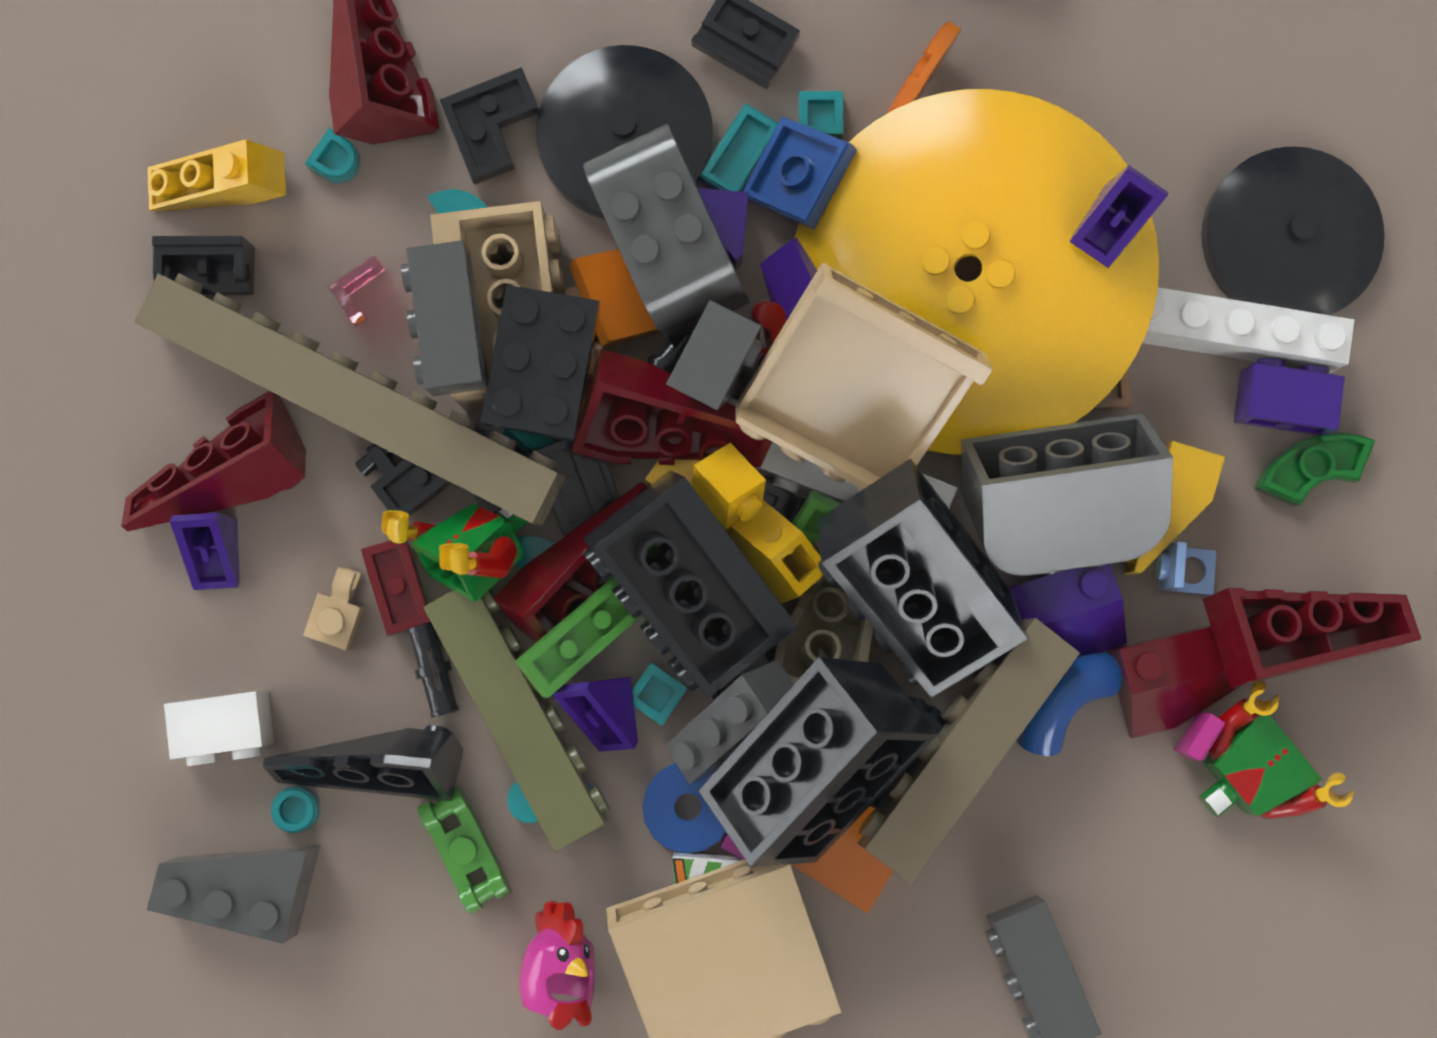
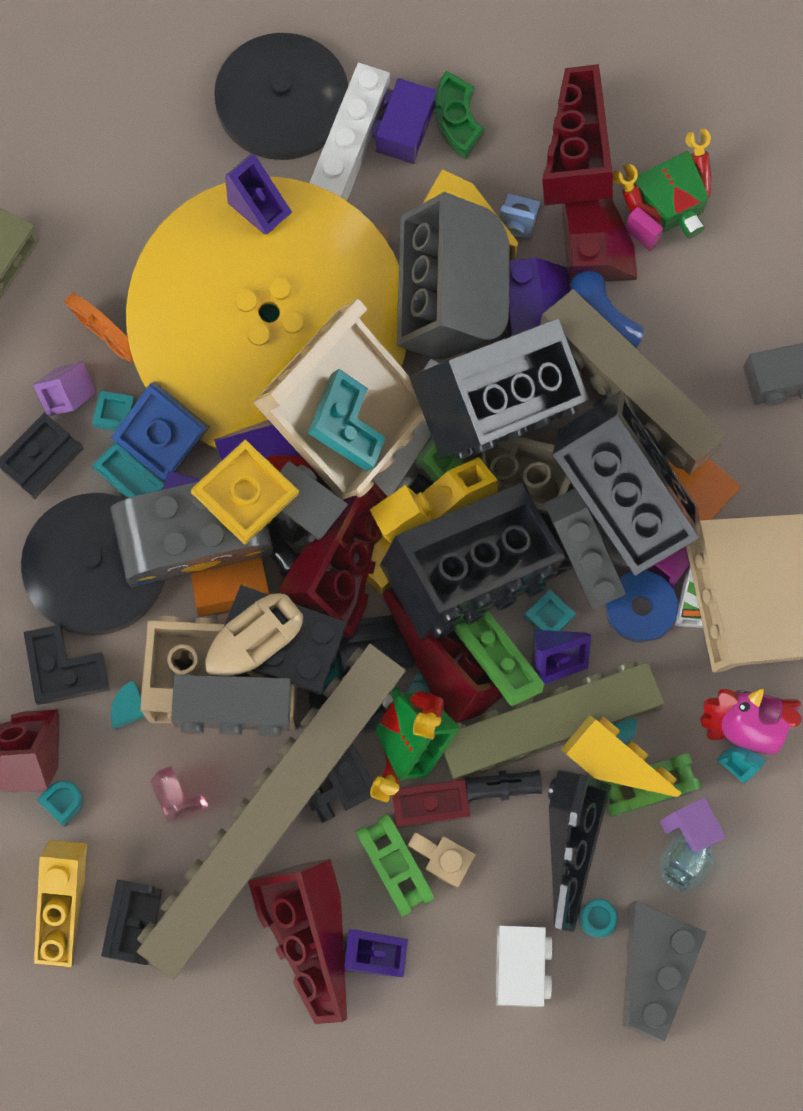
camera: 85 degrees left, 10 degrees down
(318, 555) = (394, 865): none -> bright green plate
(373, 907) = (683, 867): none -> clear light blue head
(416, 912) = (696, 824): none -> medium lavender panel
(468, 796) = (610, 760): none -> yellow slope
(507, 959) = (741, 762): none -> teal tile
(529, 327) = (253, 636): none -> tan piece
(705, 277) = (245, 492): none -> yellow tile
(824, 375) = (338, 424): none -> teal plate
(836, 49) = (65, 388): none -> medium lavender panel

